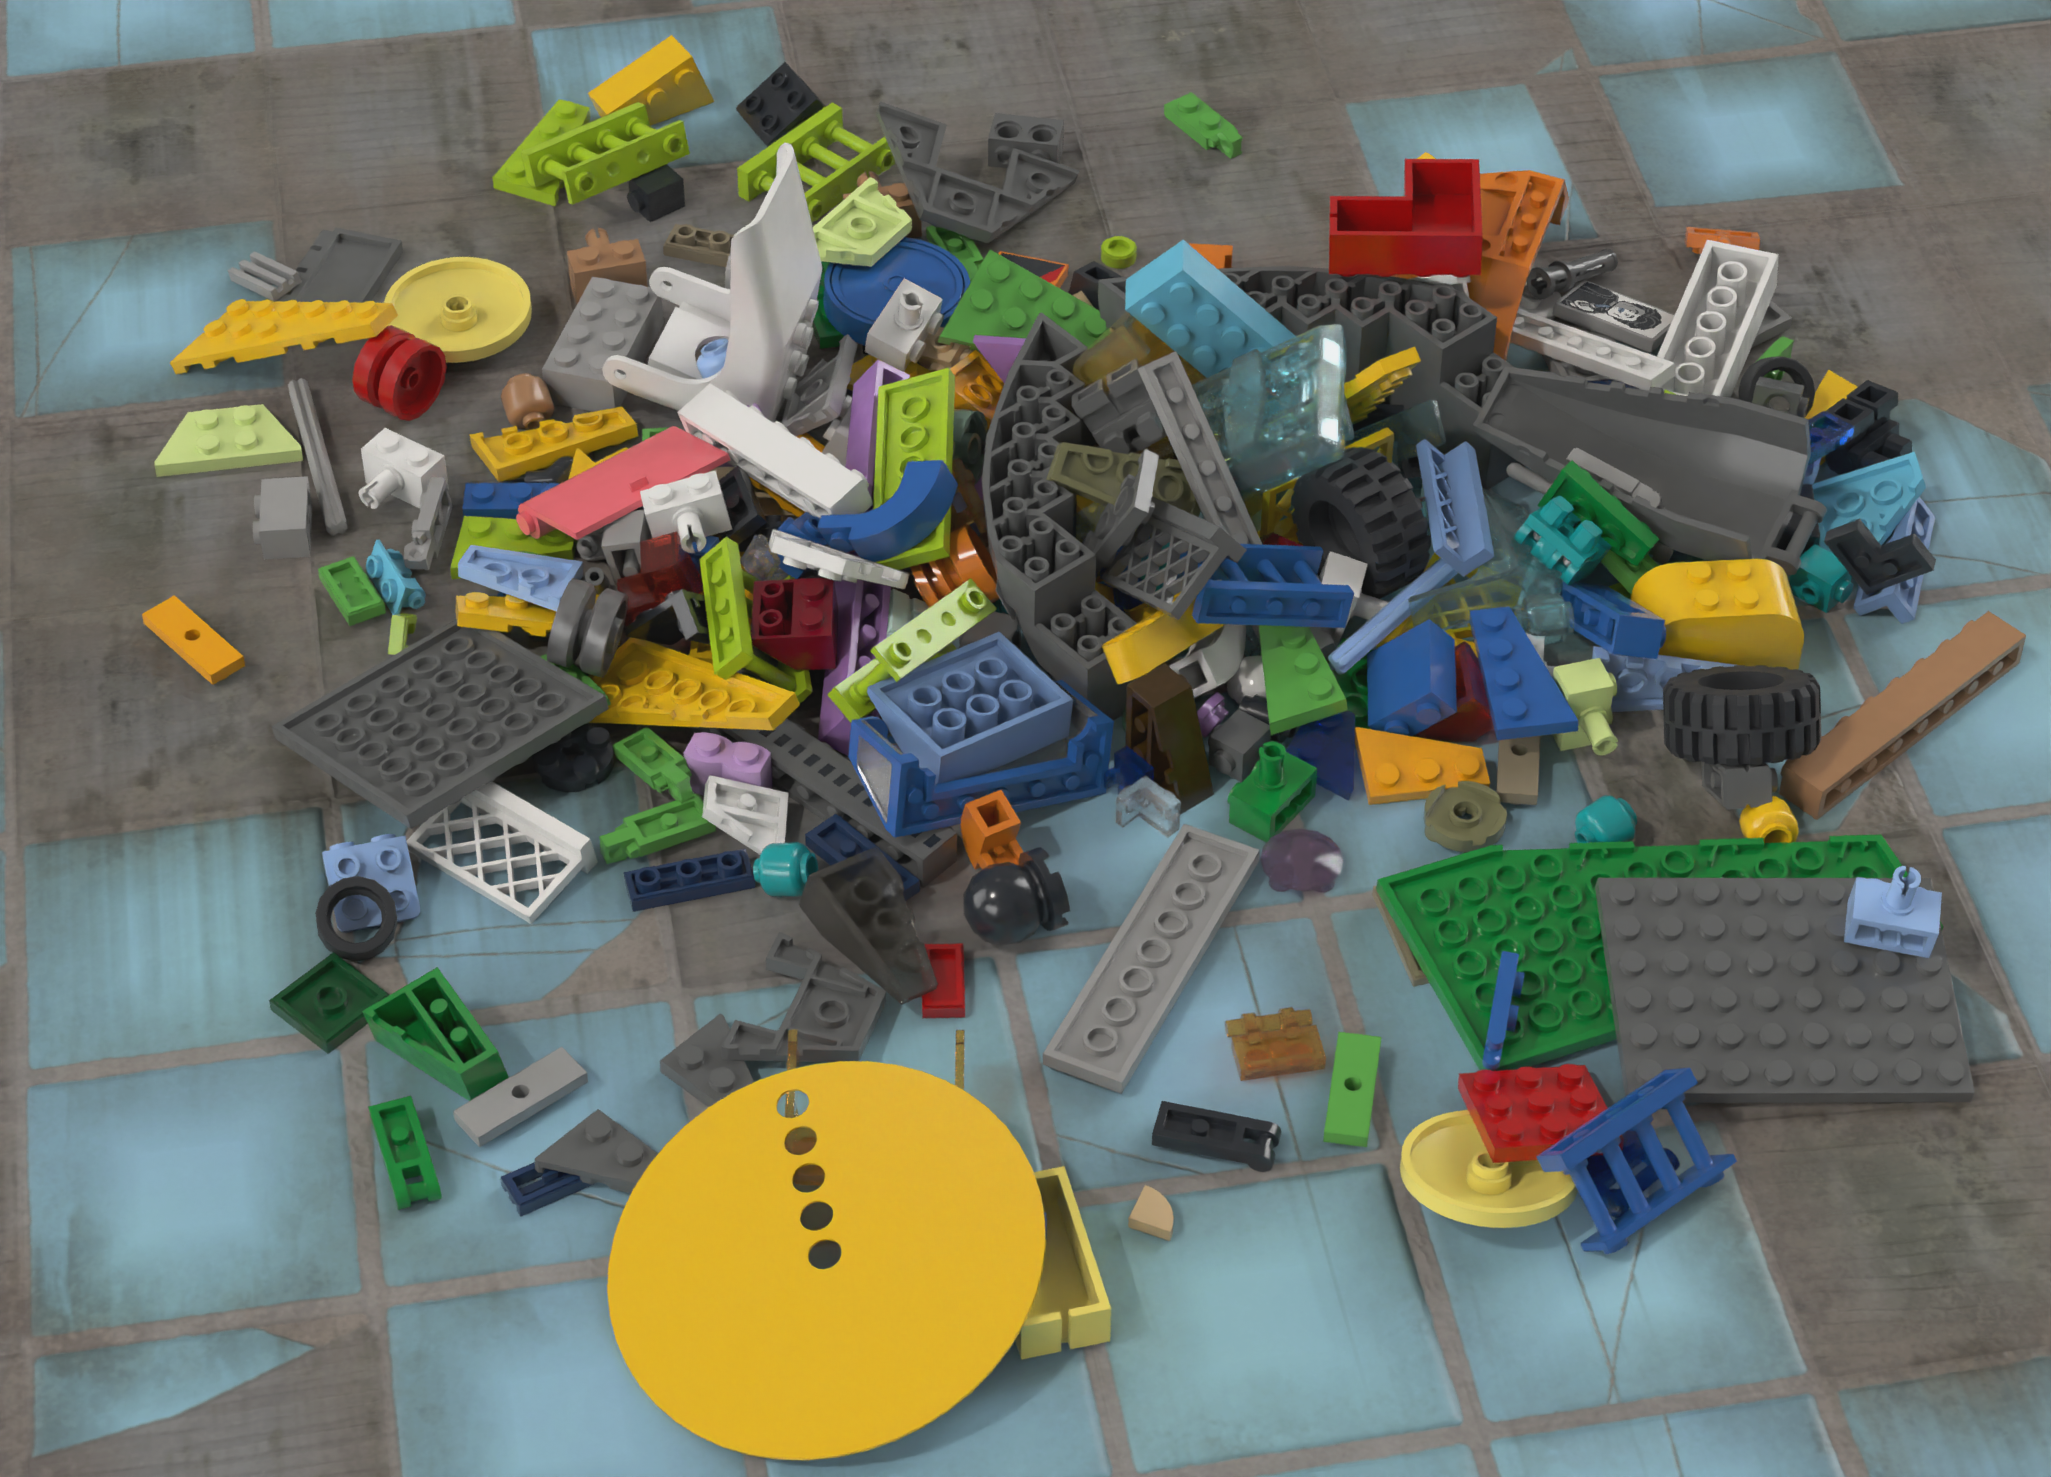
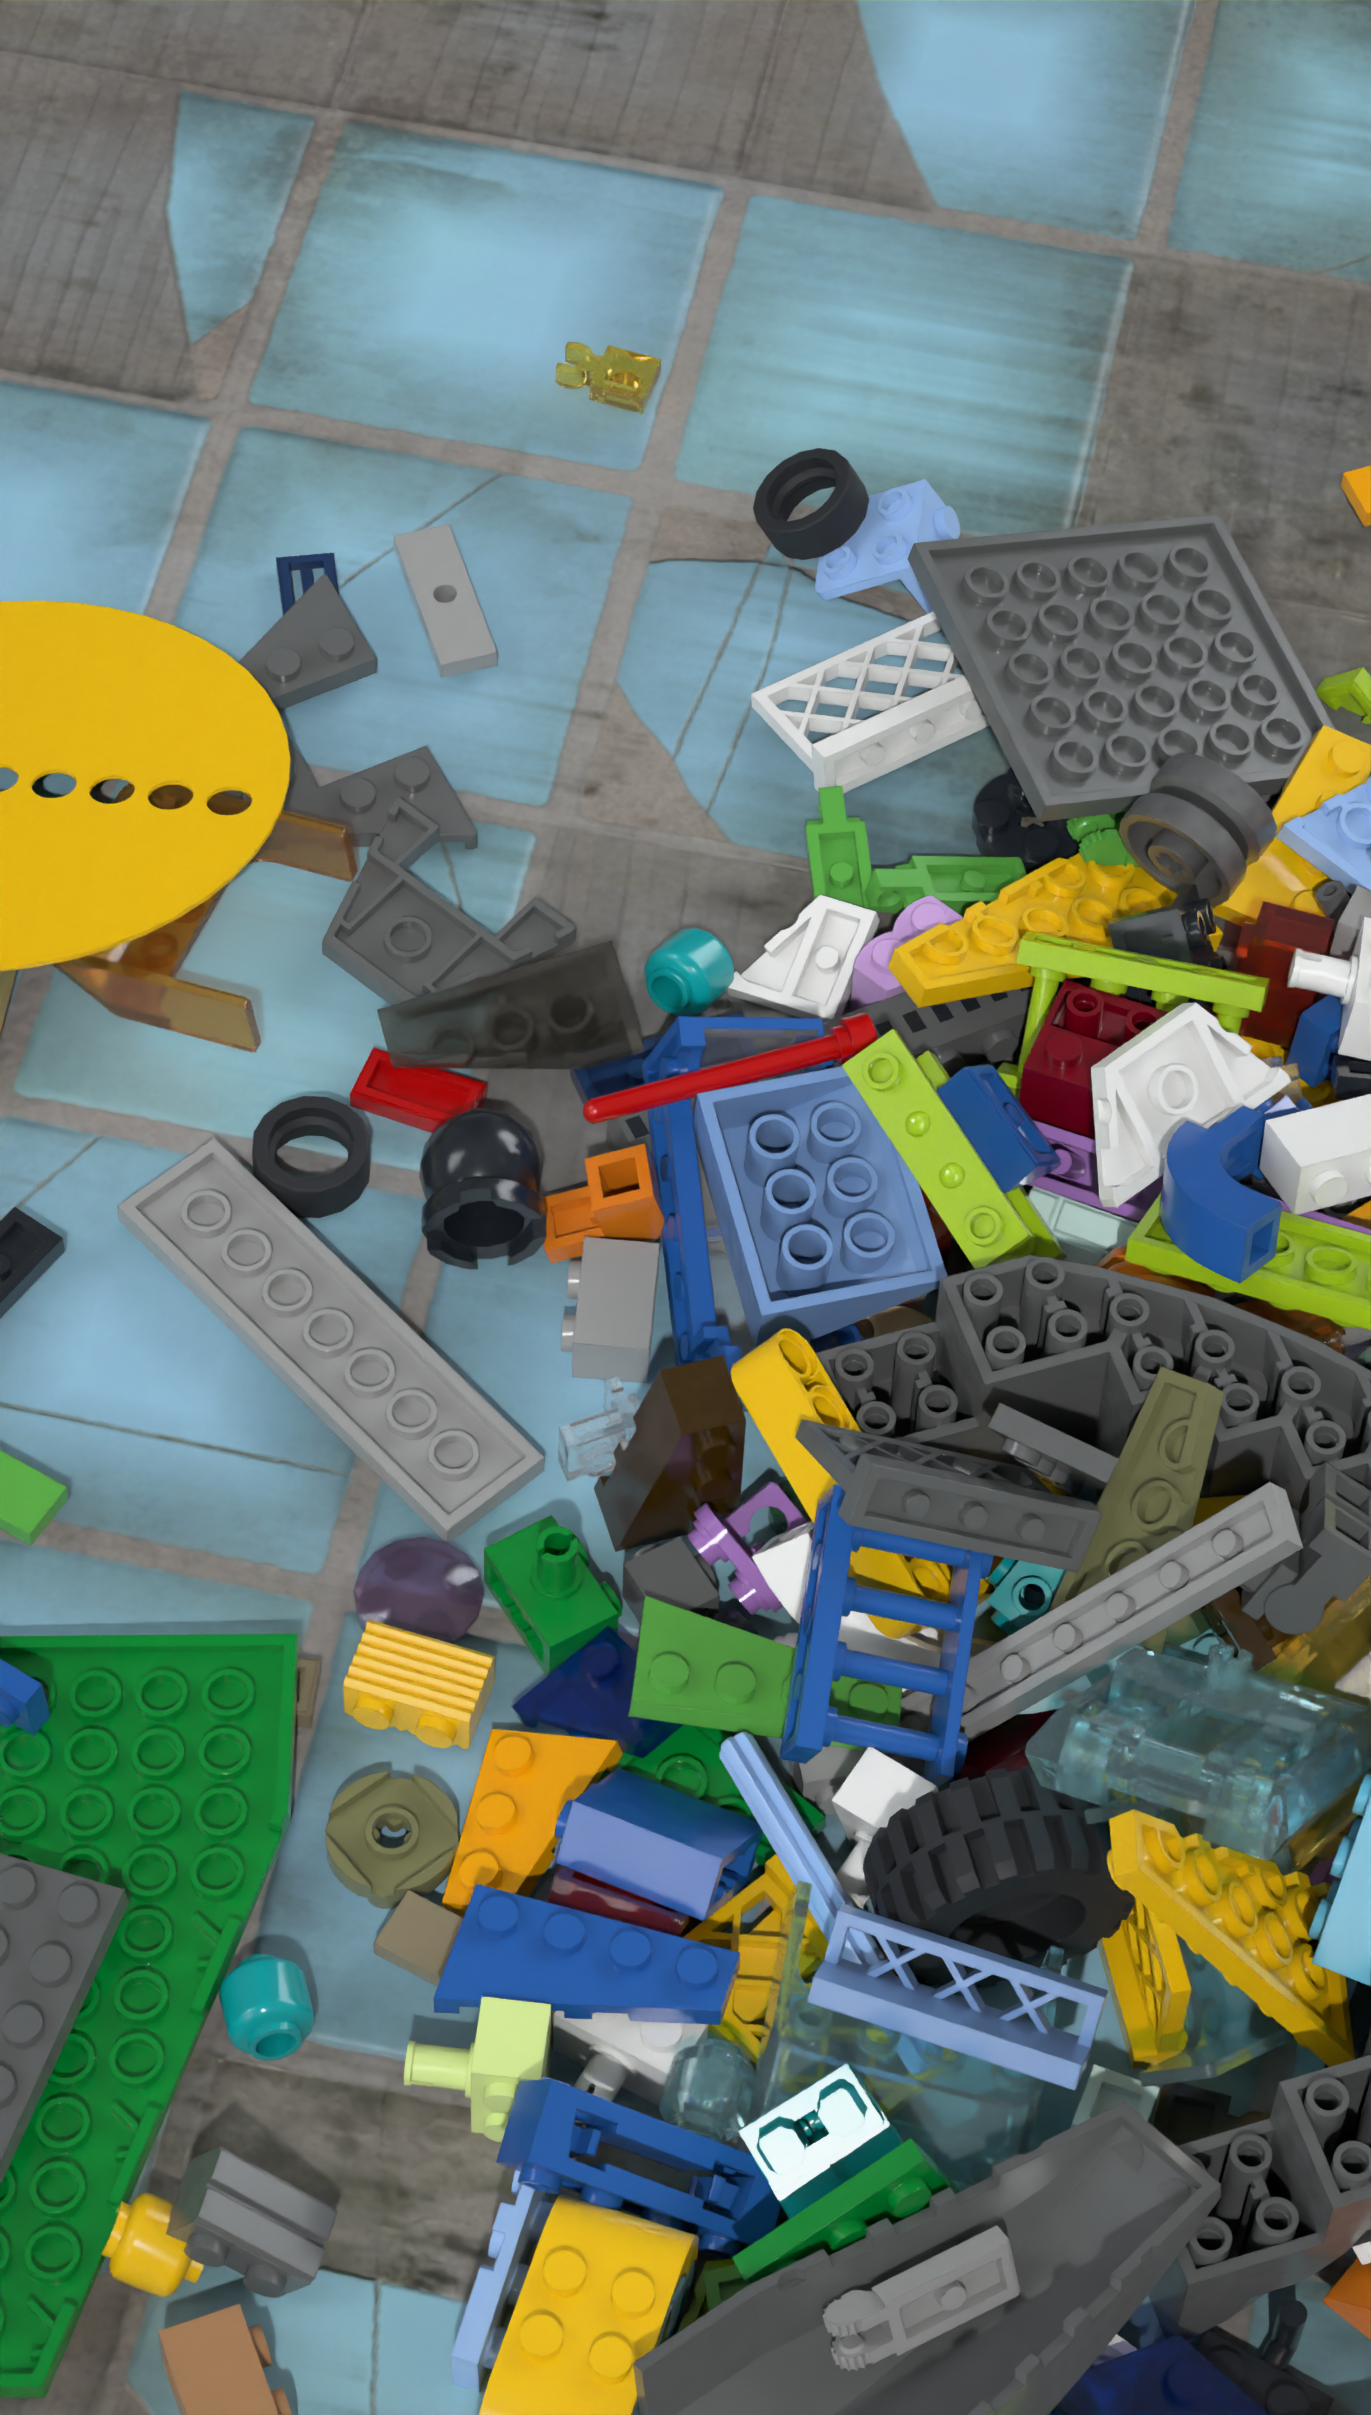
camera: 110 degrees right, 10 degrees up
(261, 1073) = (614, 379): none -> clear yellow plate
(328, 1002) = (704, 472): dark green tile -> none
(404, 1151) = (418, 473): green plate -> none
(437, 1035) = (564, 539): green wedge -> none
(689, 880) = (742, 878): dark blue tile -> none
(857, 655) = (998, 1127): none -> blue slope
(864, 700) = (842, 1044): none -> red piece
(1025, 982) = (312, 1118): none -> black tyre
(1062, 825) = (613, 1309): none -> light grey brick
(1275, 1044) = (81, 1410): clear orange plate -> none
(1366, 832) = (418, 1685): none -> yellow brick
(1742, 715) = (260, 2263): black tyre -> none

